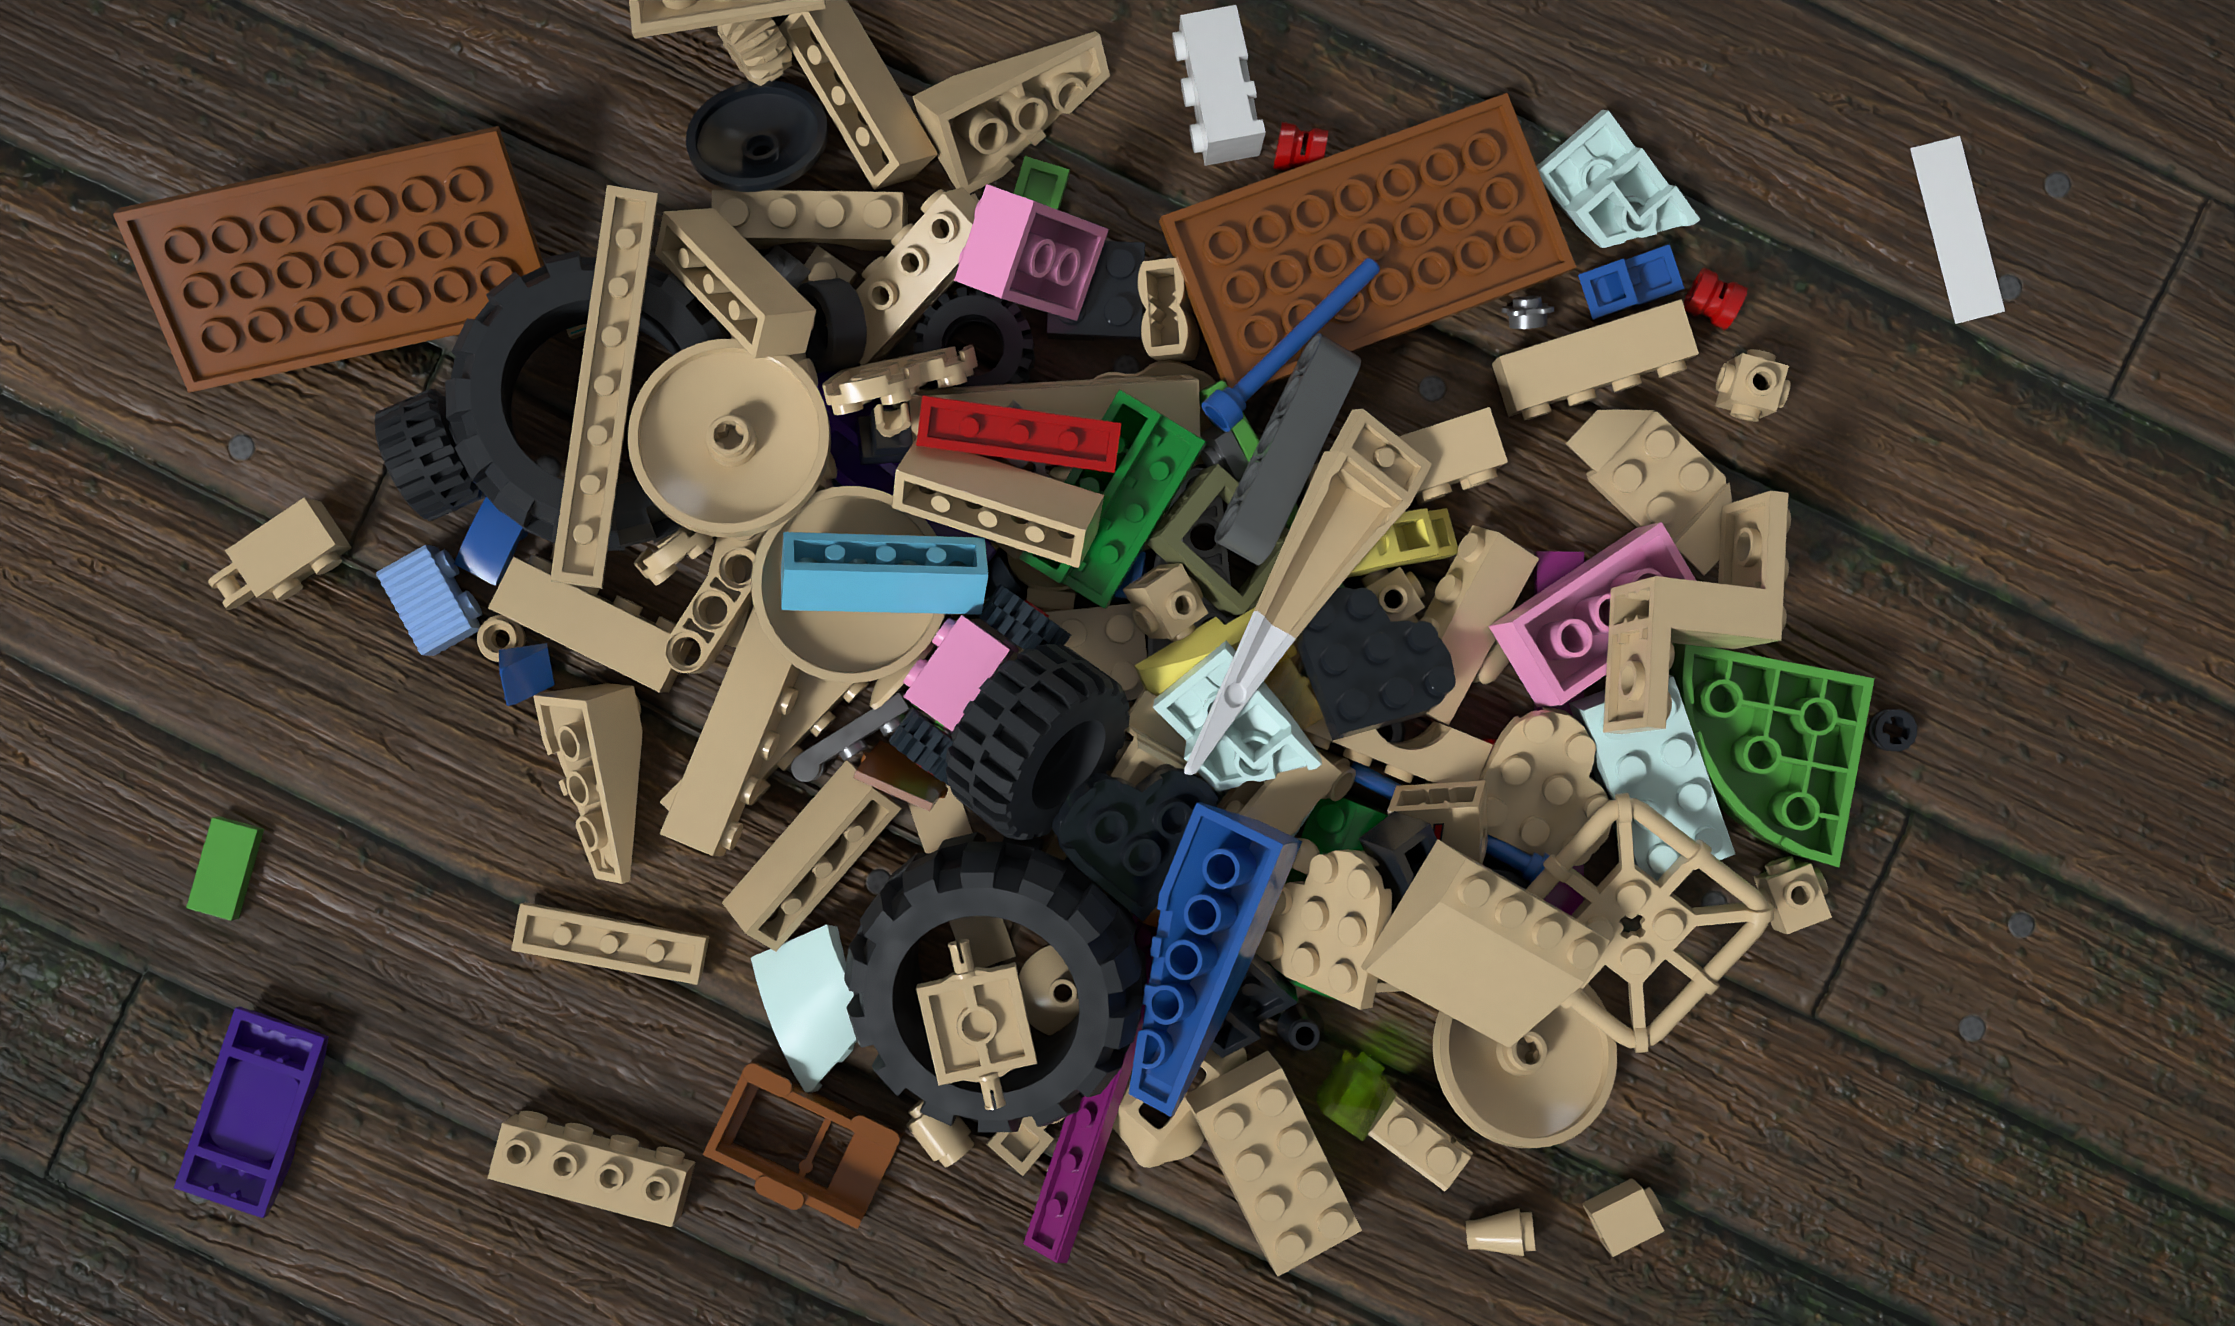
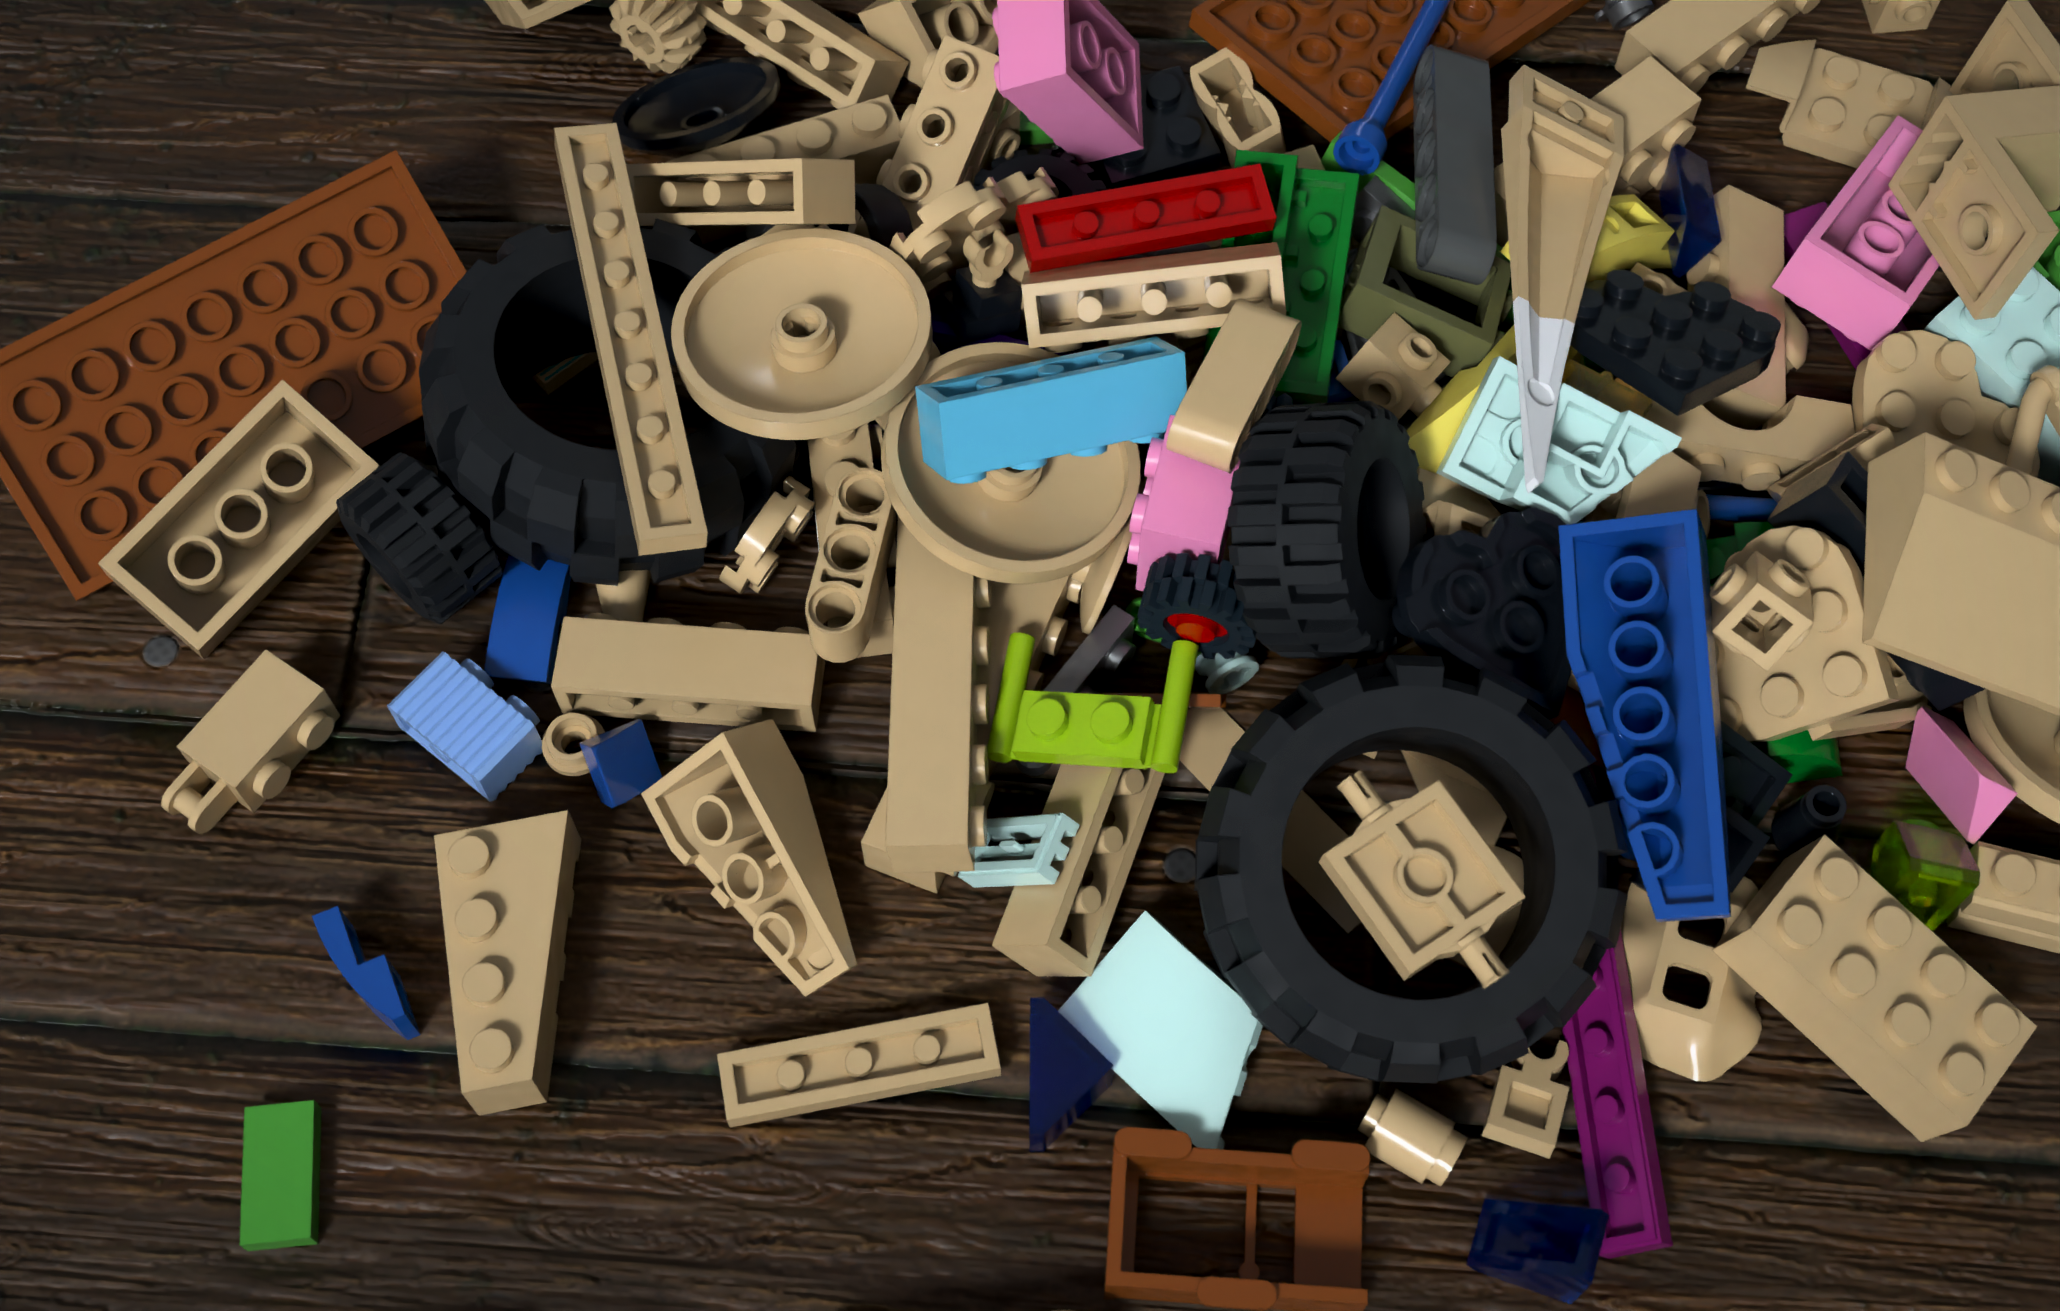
camera: 25 degrees left, 25 degrees down
(312, 389) = (239, 520): none -> tan brick
(317, 775) = (372, 980): none -> blue slope
(404, 780) = (505, 938): none -> tan wedge
(734, 1001) = (1064, 1074): none -> clear blue slope
(775, 861) = (1021, 863): none -> light aqua tile
(832, 791) = (1086, 726): none -> lime plate
(985, 1228) = (1539, 1246): none -> clear blue slope
(1009, 618) = (1233, 385): none -> tan beam
(1303, 919) = (1763, 627): none -> tan brick
(1412, 1046) = (1956, 774): none -> bright pink slope
(1462, 538) = (1688, 209): none -> clear blue slope

